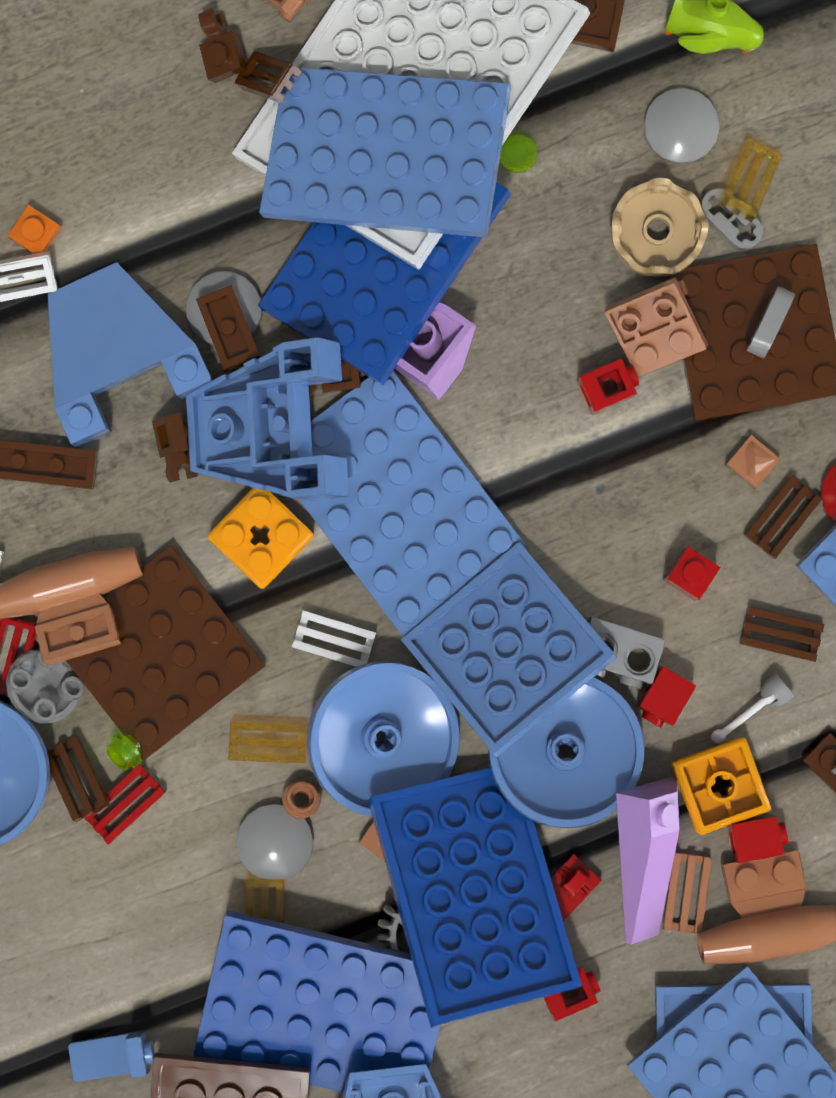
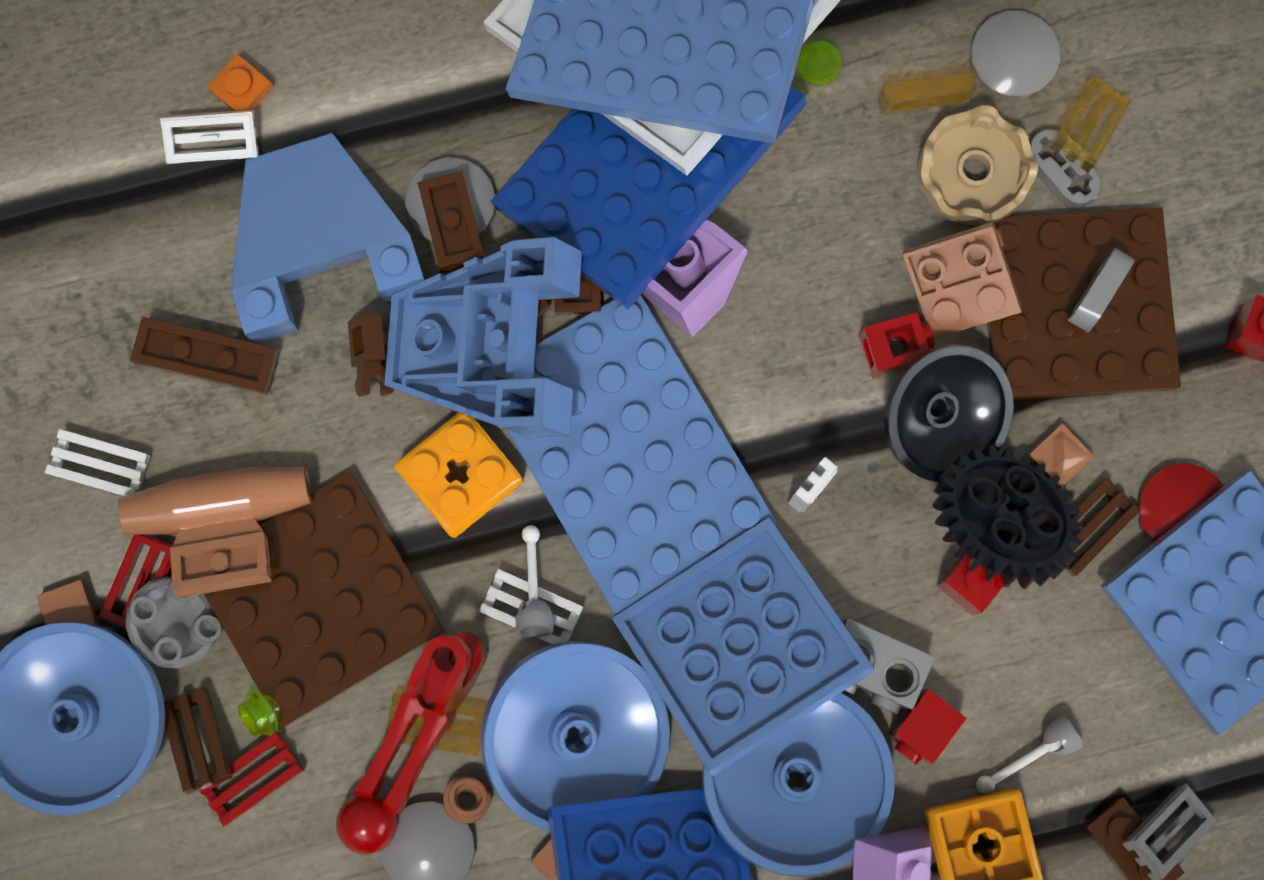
camera: 10 degrees right, 5 degrees down
(265, 717) = (434, 692): none -> red piece
(337, 645) = (533, 616): none -> hinge
(552, 512) = (813, 485): none -> white tile
(610, 170) = (927, 93): none -> clear yellow tile
(669, 451) = (970, 411): none -> black dish
(715, 509) = (1007, 517): none -> black gear
(813, 641) = (1112, 681): reddish brown tile -> none

